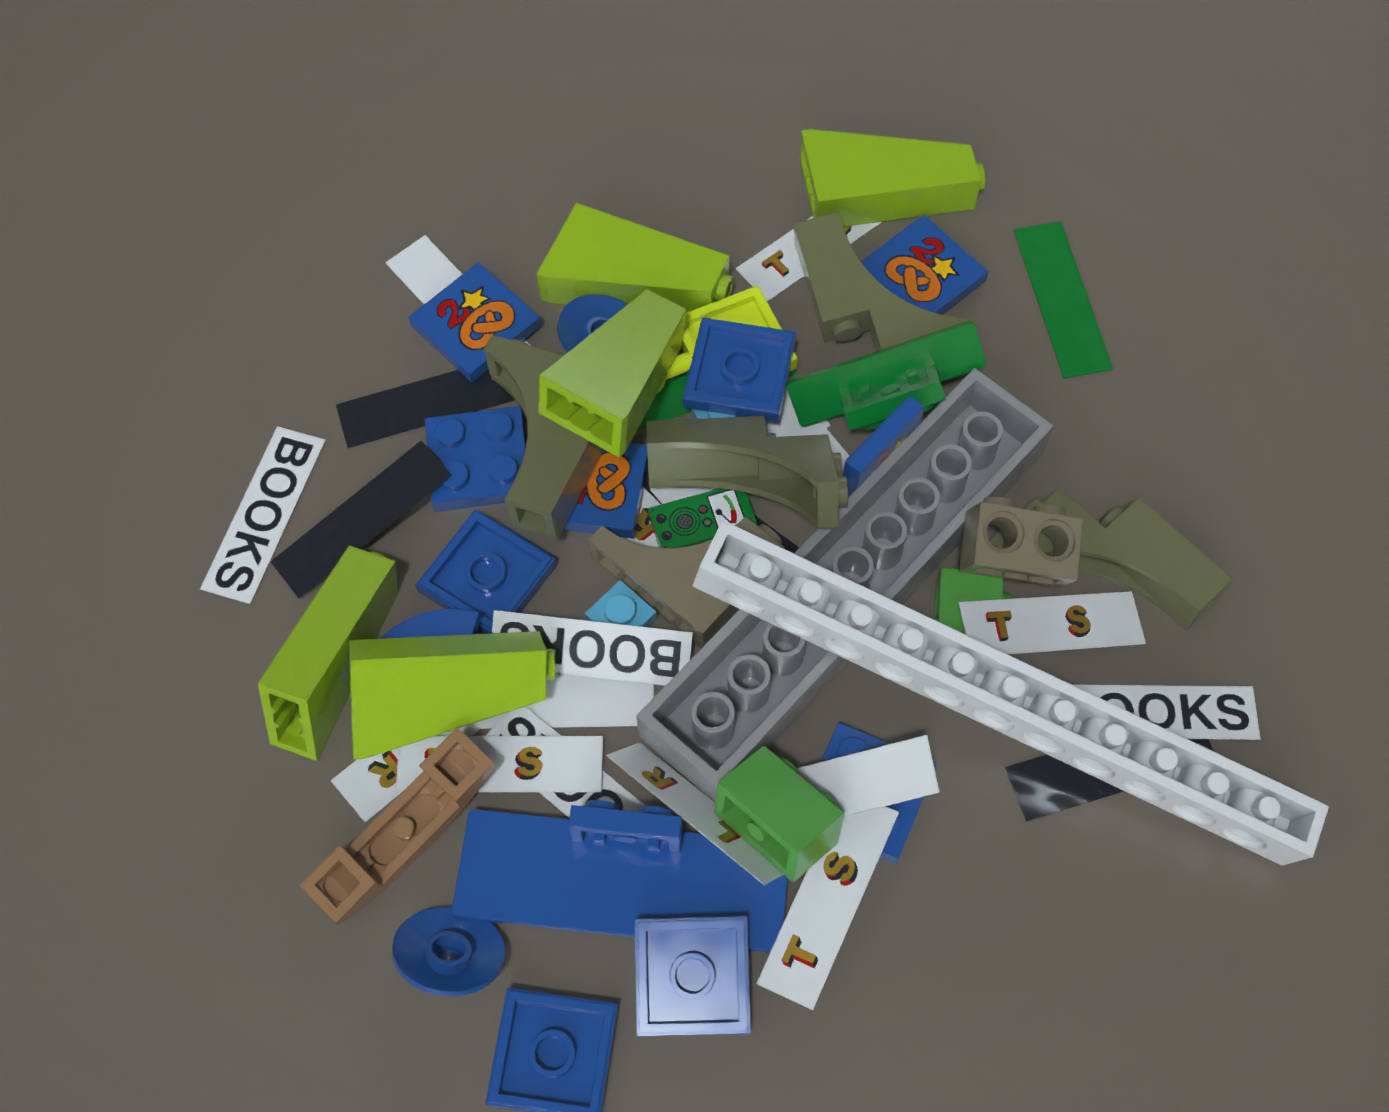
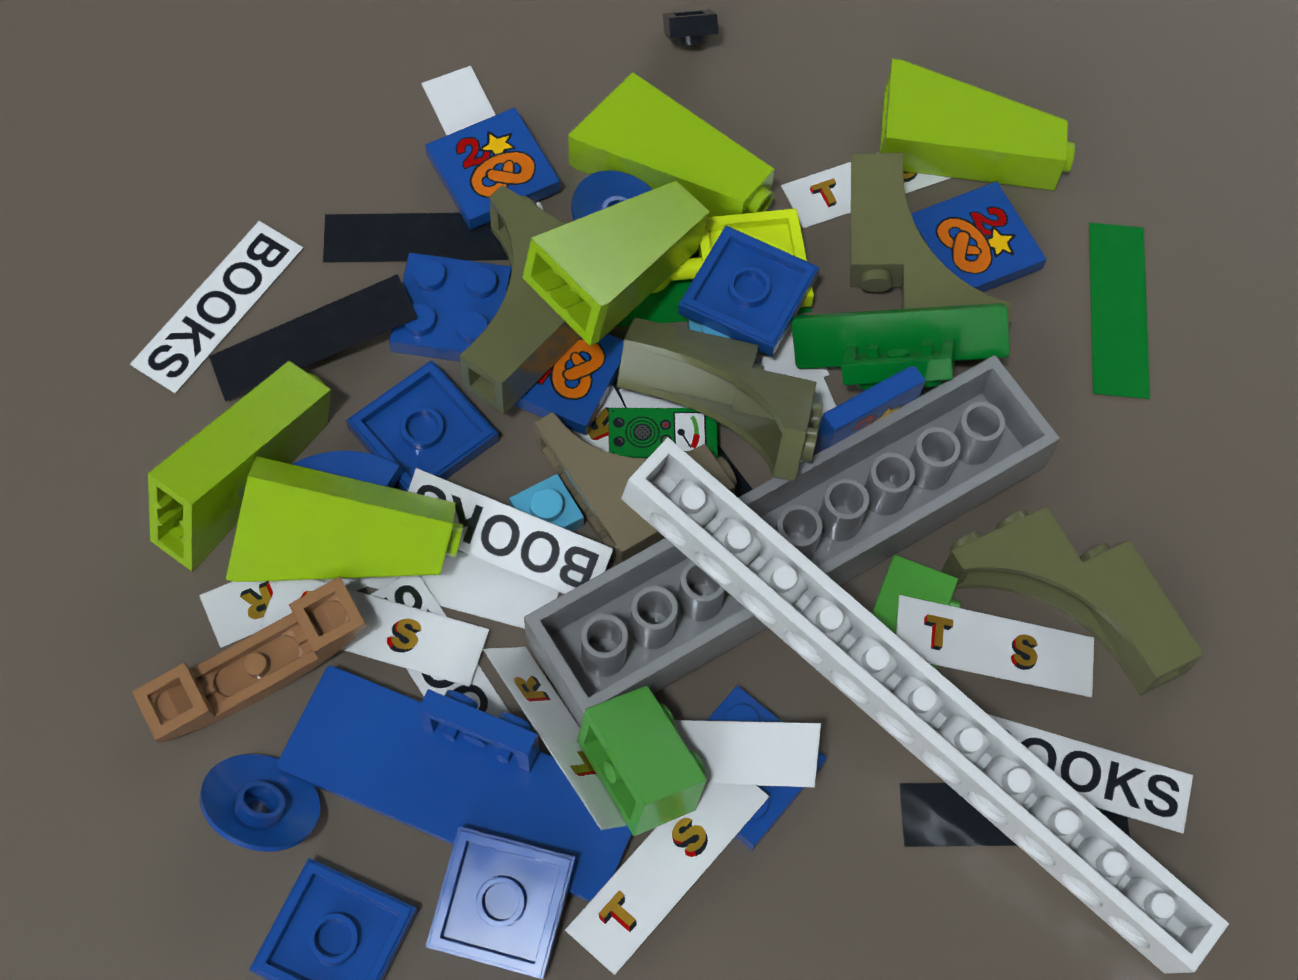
camera: 10 degrees right, 0 degrees up
(612, 148) = (690, 26): none -> black plate
(1021, 555) = (980, 566): dark tan brick -> none

